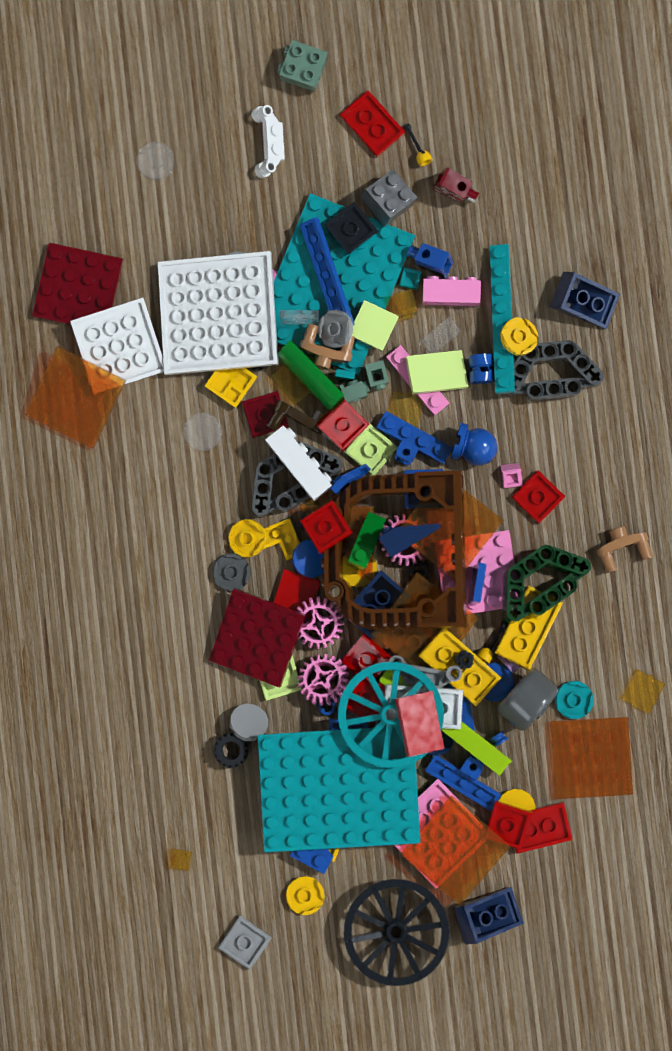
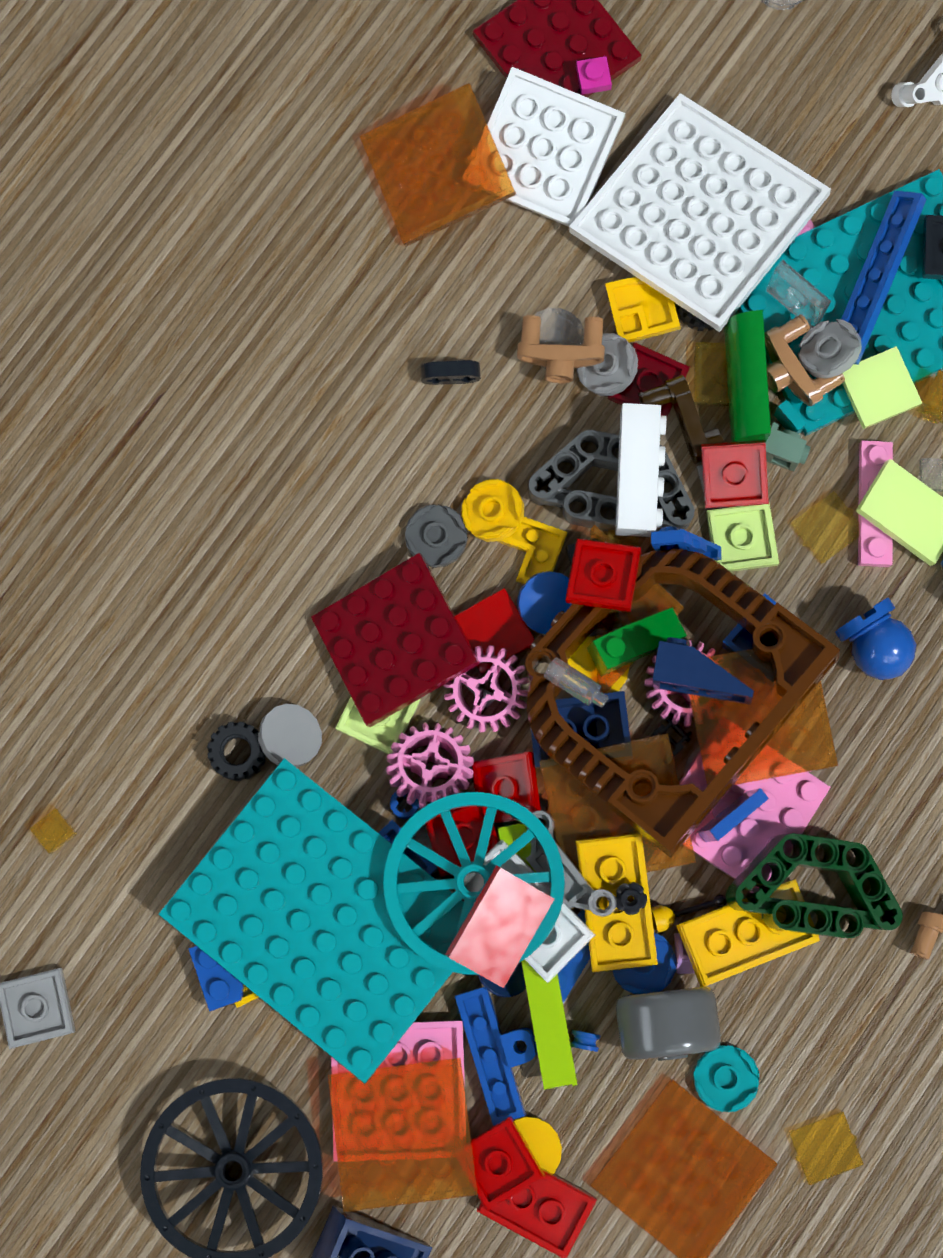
camera: 40 degrees right, 5 degrees down
(110, 289) = (593, 75): none -> dark pink plate
(164, 496) = (450, 372): none -> black beam
(217, 441) = (561, 359): none -> medium nougat connector
(239, 423) = (615, 371): none -> light grey tile
(305, 895) = (163, 1017): yellow tile -> none
(357, 587) = (575, 683): none -> clear cylinder
(377, 368) = (835, 443): sand green brick -> none
(412, 440) = (804, 571): blue plate -> none
(511, 475) = (892, 722): bright pink slope -> none
(538, 497) = (904, 779): red tile -> none

